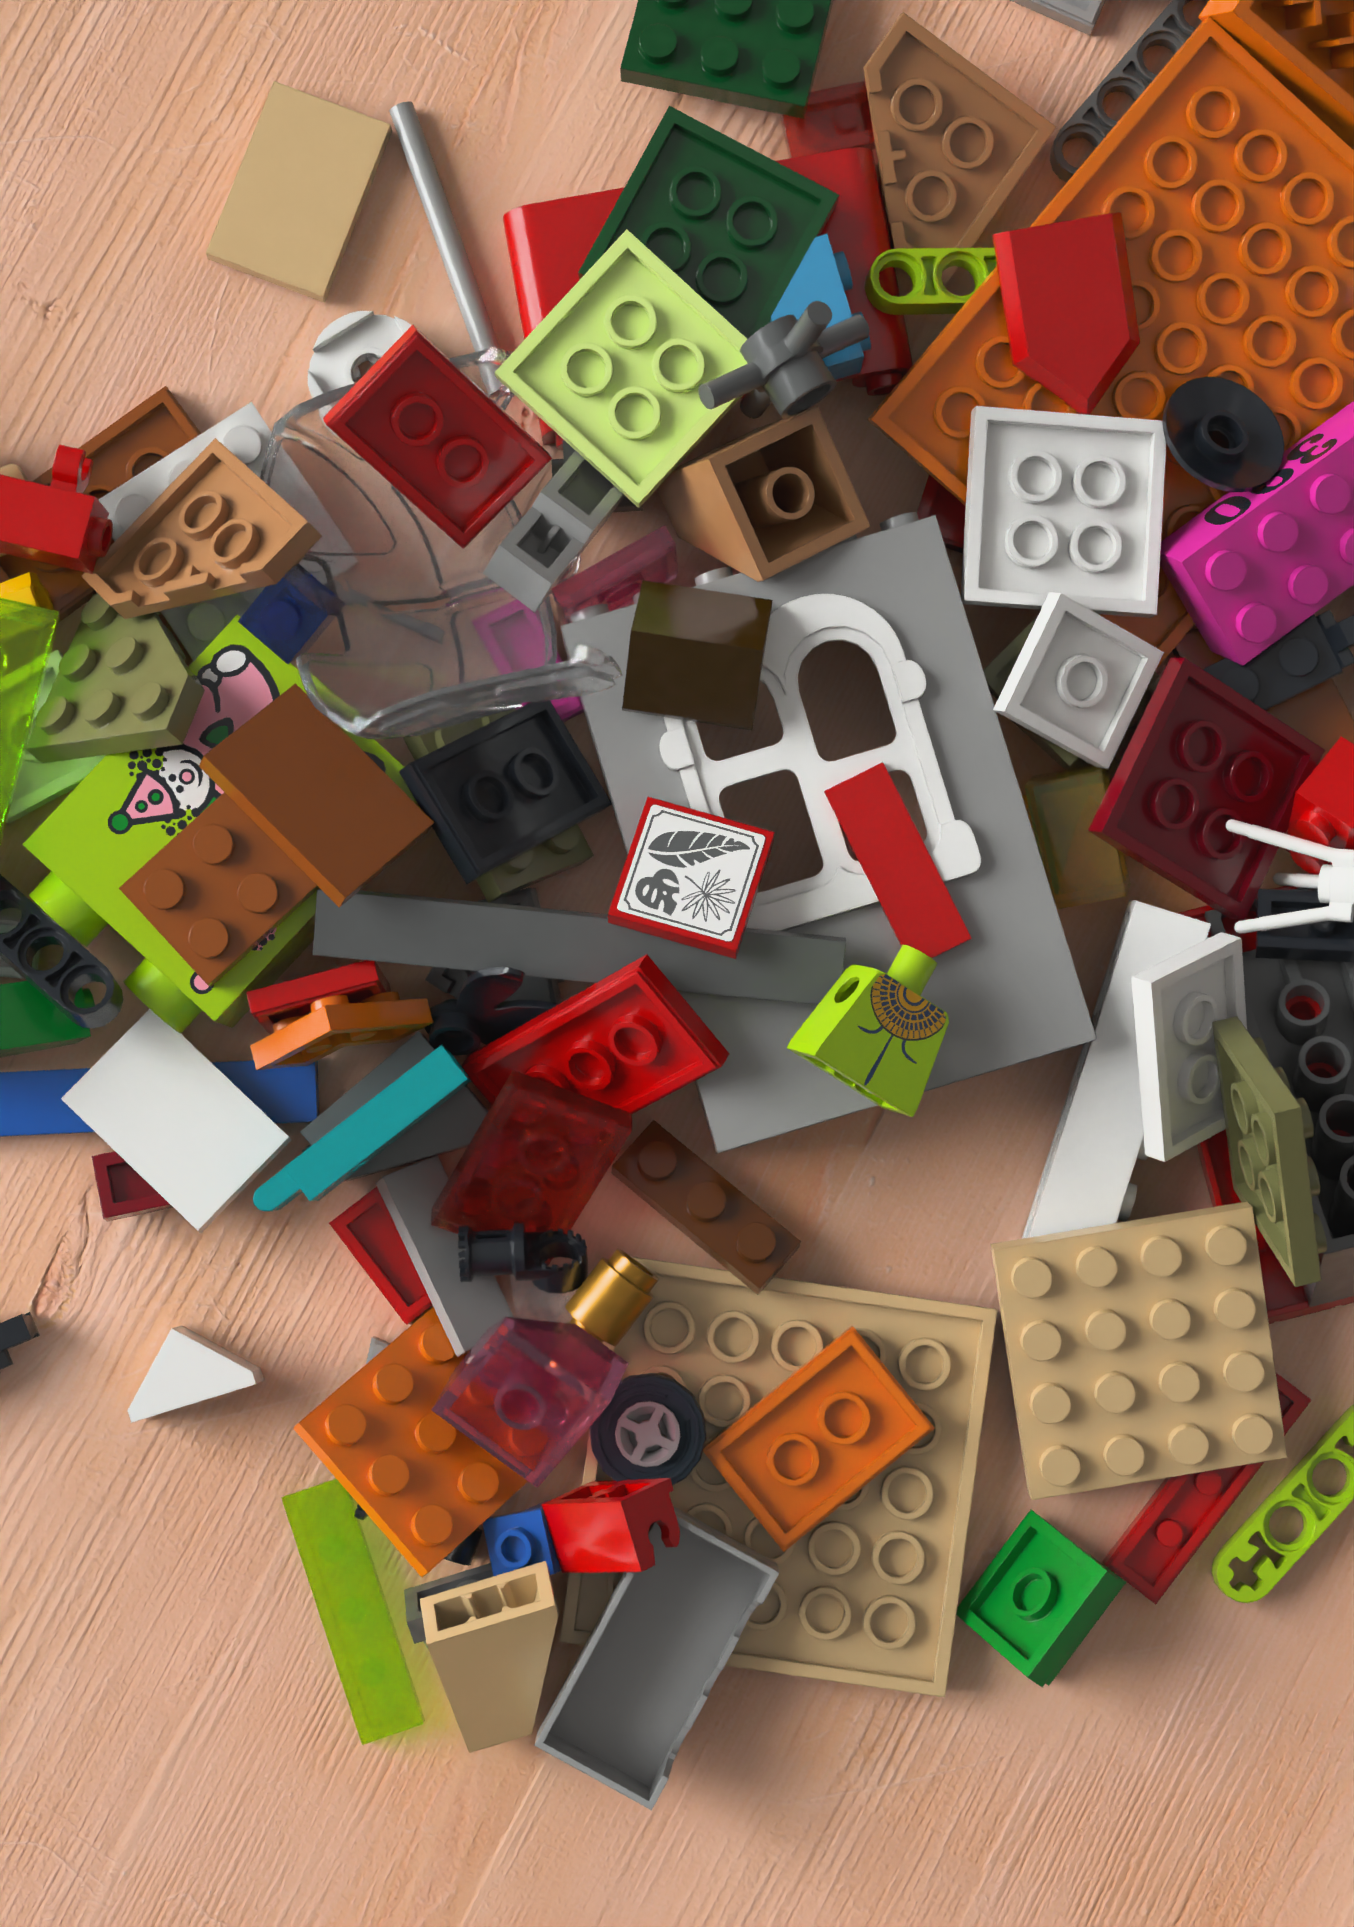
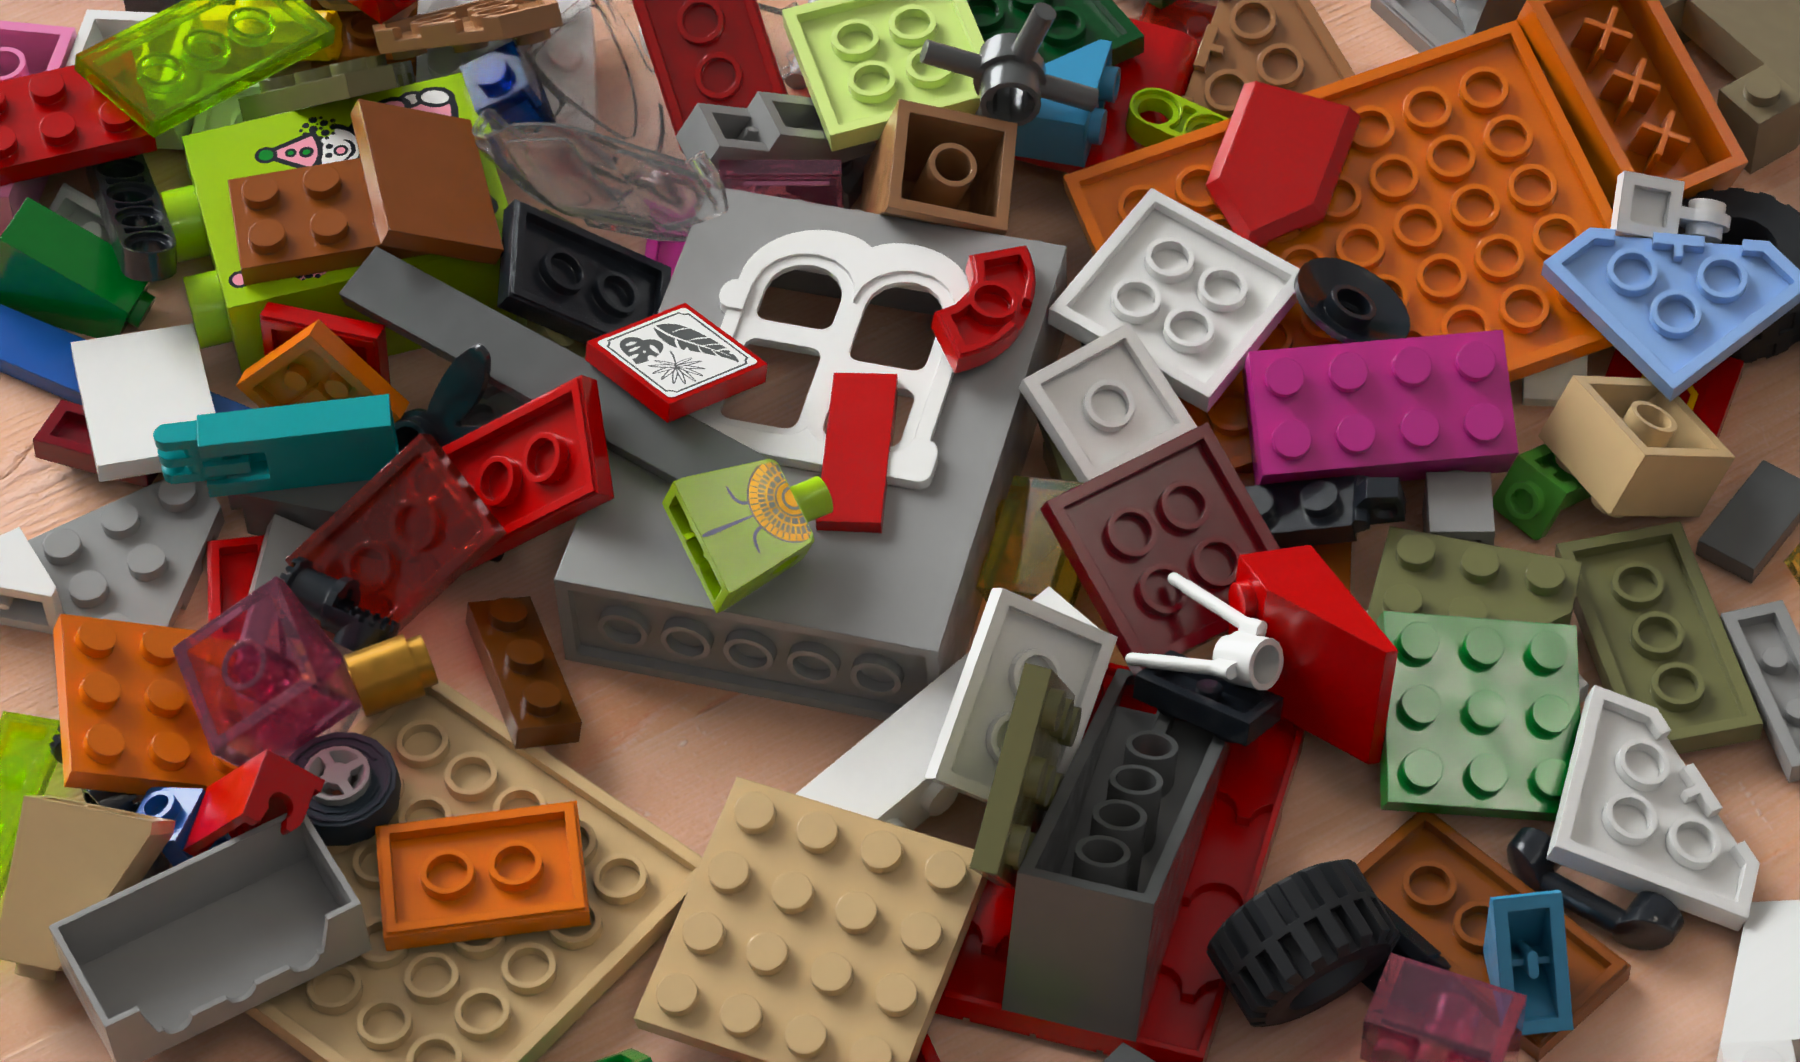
camera: 35 degrees right, 35 degrees down
(276, 1294) = (133, 555): none -> light grey plate
(696, 655) = (793, 234): dark brown slope -> none
(924, 641) = (991, 311): none -> red tile

